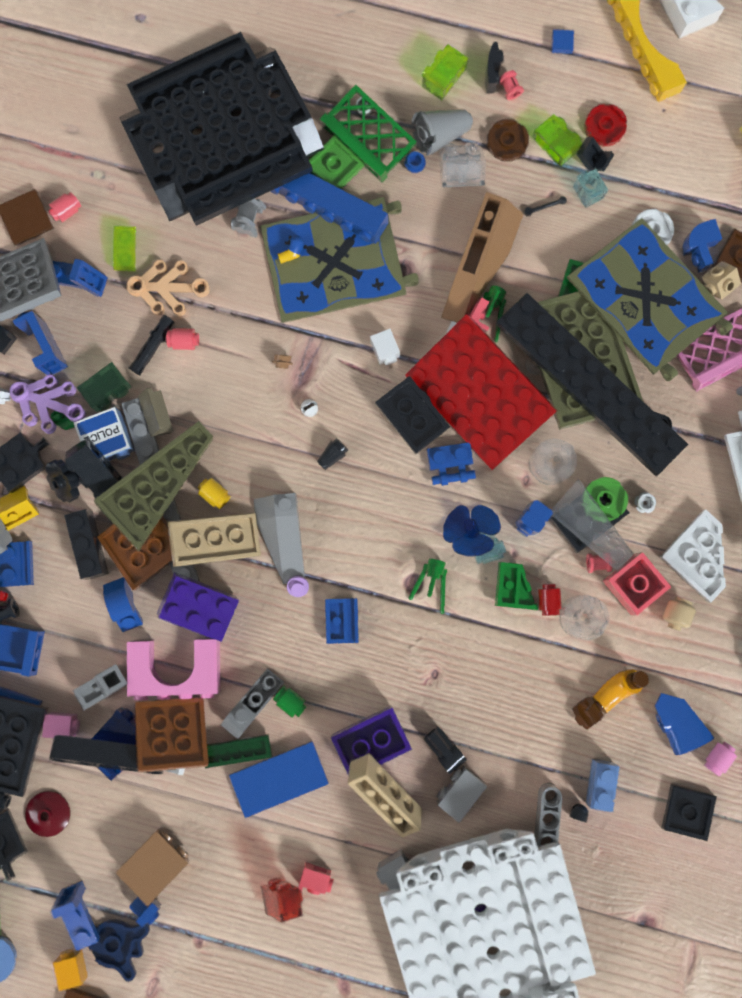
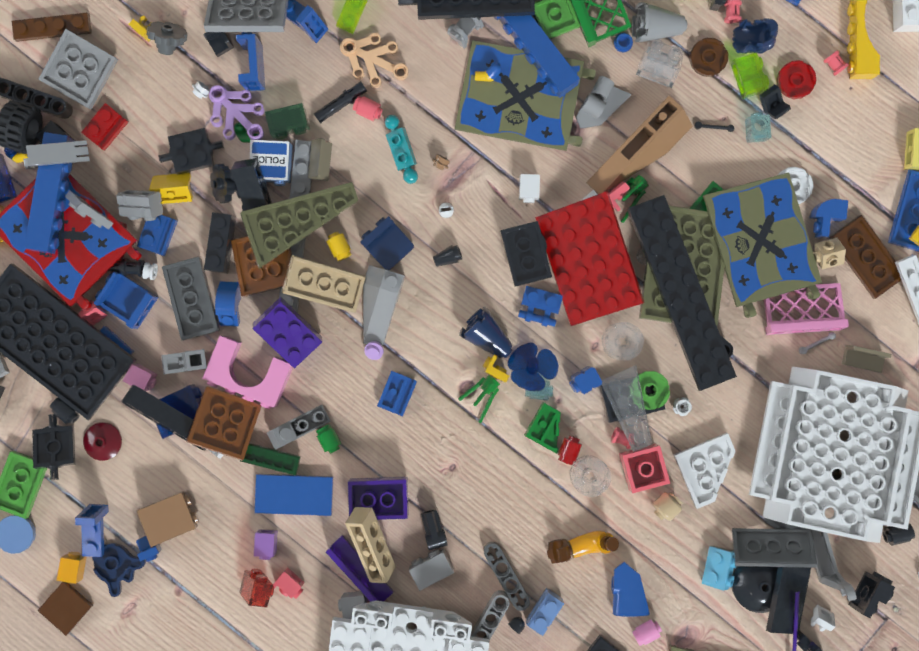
camera: 25 degrees right, 5 degrees up
(24, 606) = (150, 271): none -> white bush
(79, 617) = (190, 298): none -> dark grey plate
(235, 365) = (401, 149): none -> teal plate
(262, 468) = (387, 243): none -> dark blue bracket
(271, 846) = (265, 544): none -> medium lavender brick
(373, 827) = (349, 562): none -> dark purple fence
(408, 516) = (486, 334): none -> dark blue cone
(419, 232) = (600, 103): none -> light grey panel
(437, 551) = (497, 372): none -> yellow bracket
(542, 767) = (507, 575): none -> dark grey beam
(545, 99) = (755, 36): none -> dark blue hair
(637, 91) = (836, 63): none -> coral bush

